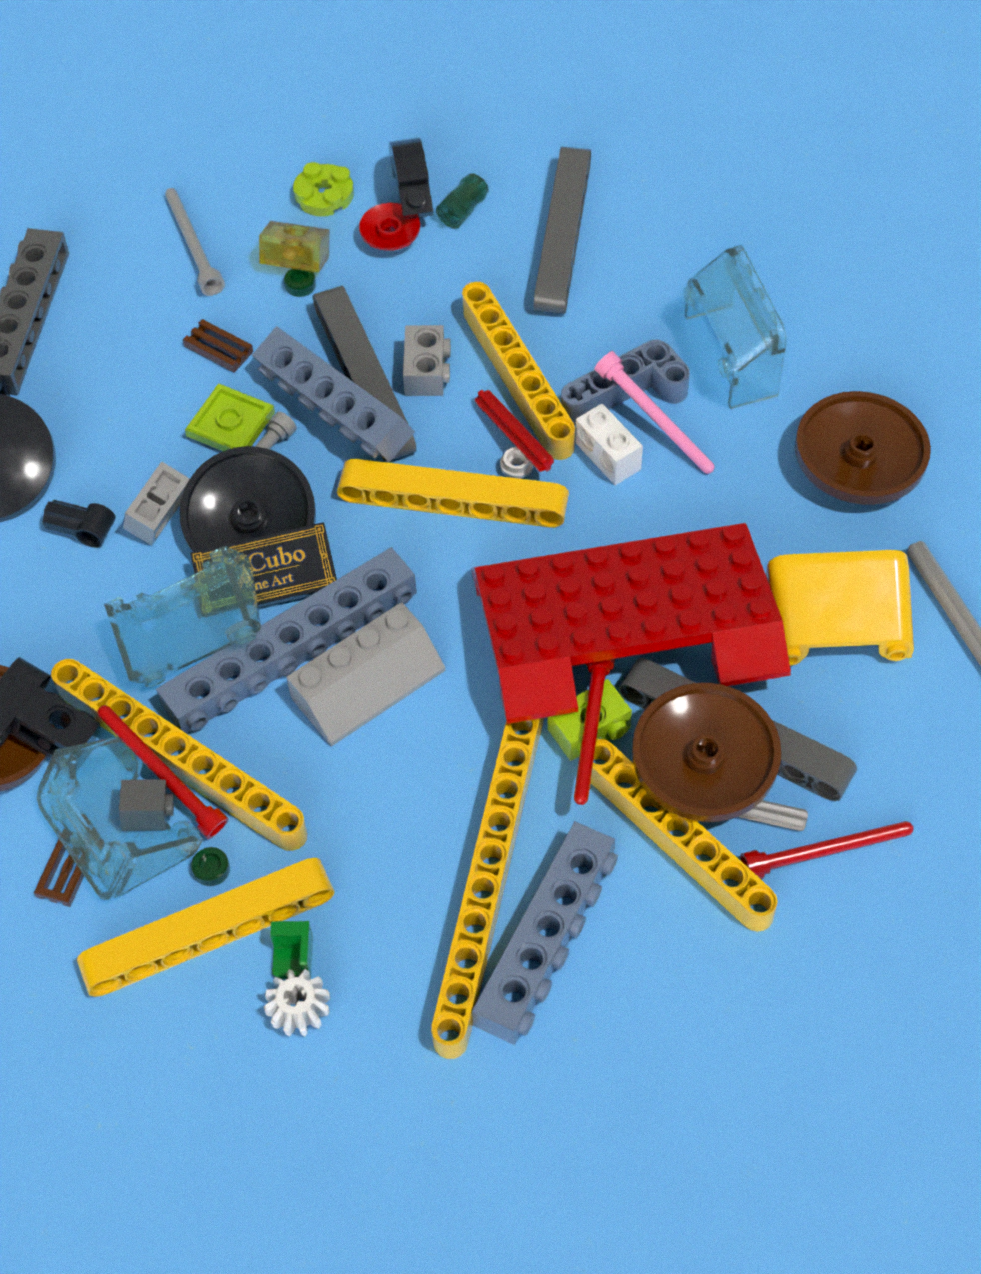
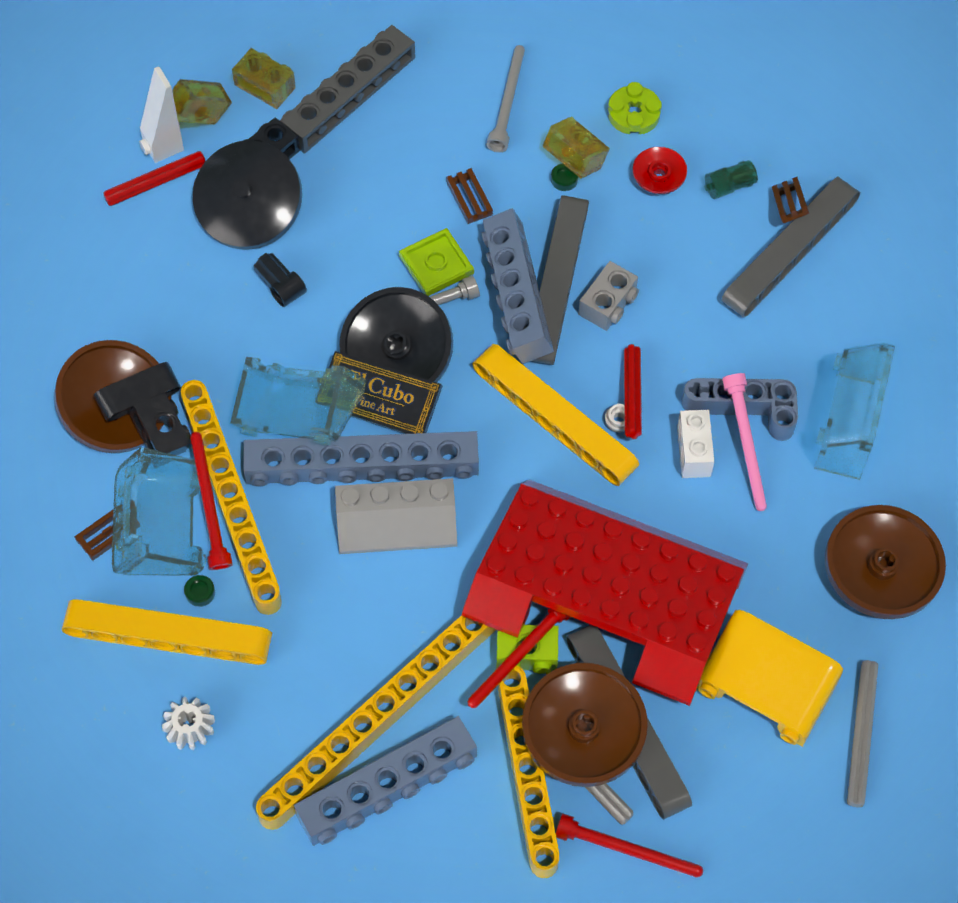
camera: 30 degrees right, 5 degrees up
(145, 805) = (182, 520): dark grey brick -> none
(155, 503) = (337, 298): light grey brick -> none
(292, 947) = (212, 684): green panel -> none
(412, 177) = (699, 137): black arch -> none
(518, 371) = (672, 354): yellow beam -> none
(523, 182) = (787, 189): none -> reddish brown tile

